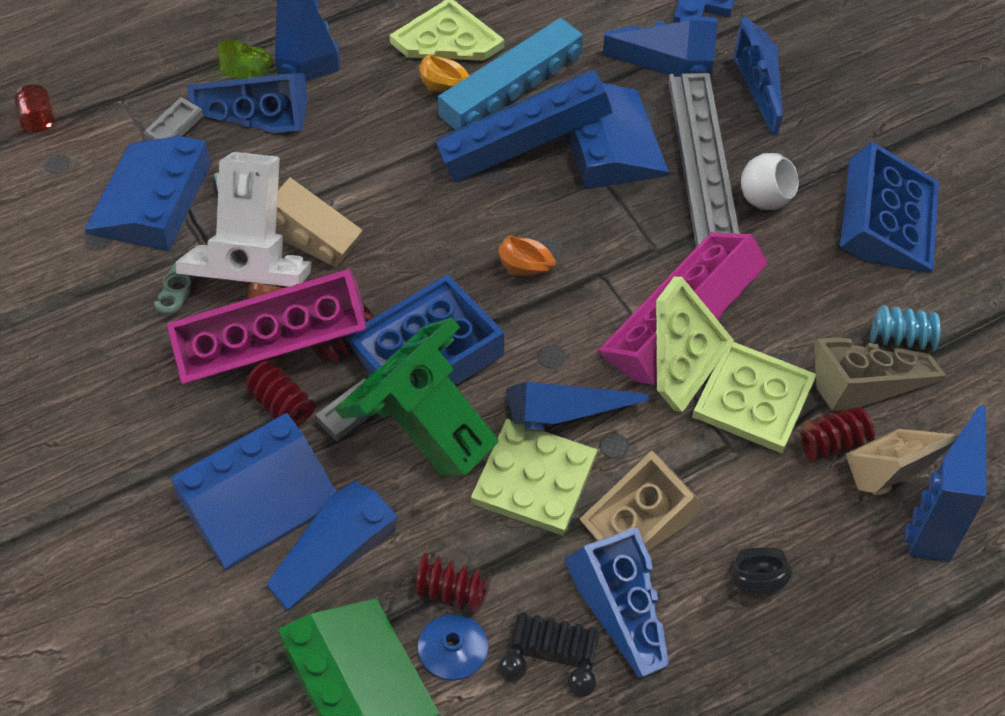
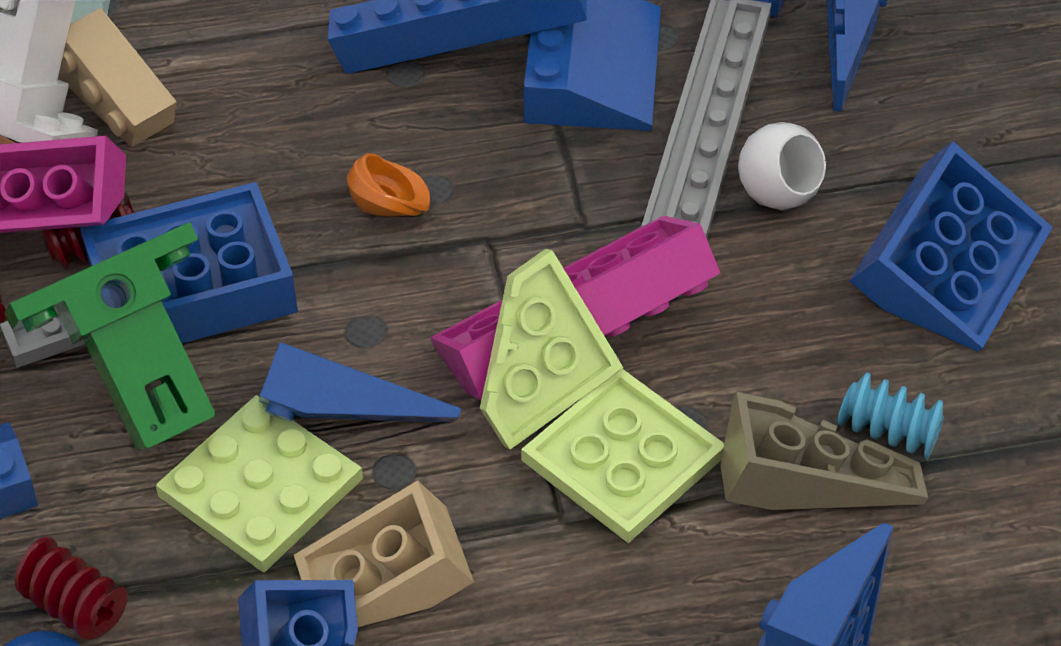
camera: 20 degrees right, 5 degrees down
(836, 430) = (714, 532): dark red piece -> none
(896, 458) = (750, 584): tan slope -> none

